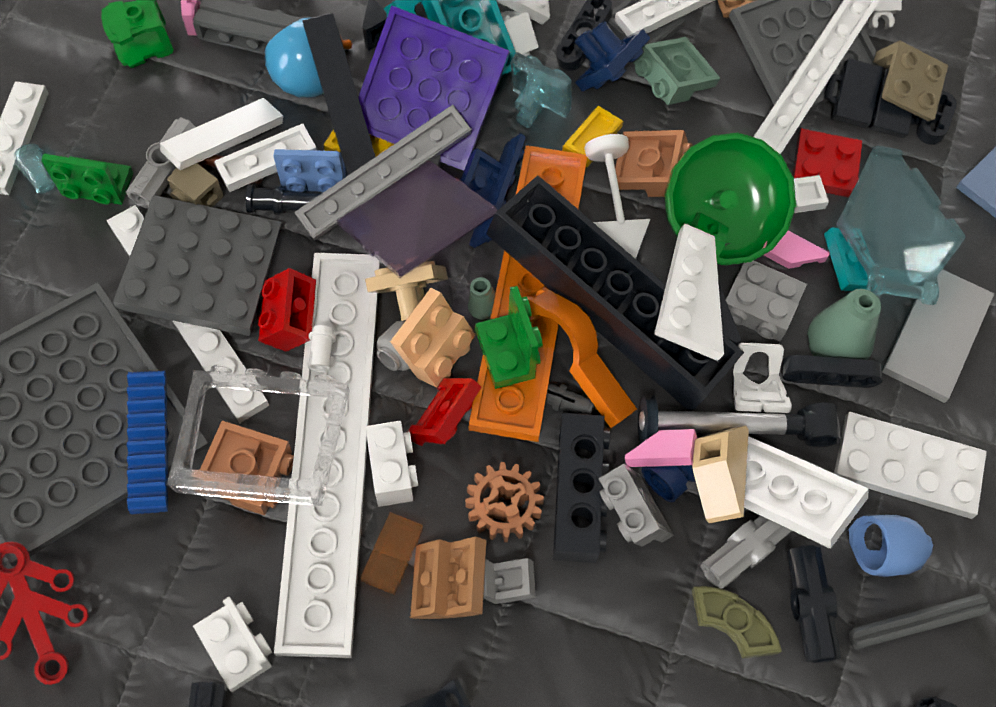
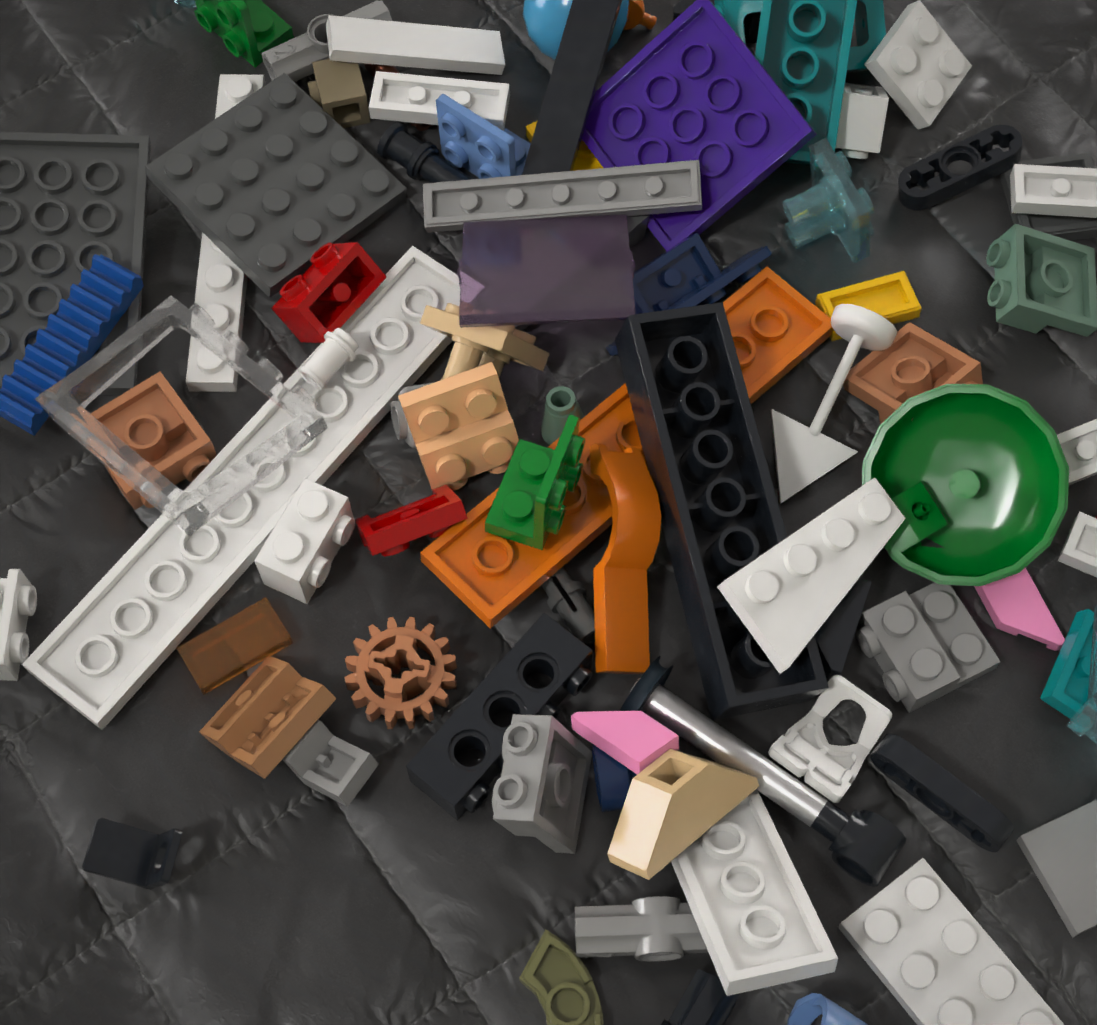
camera: 40 degrees right, 0 degrees up
(607, 54) = (959, 211): dark blue plate -> none
(846, 327) = (1000, 752): sand green cone -> none

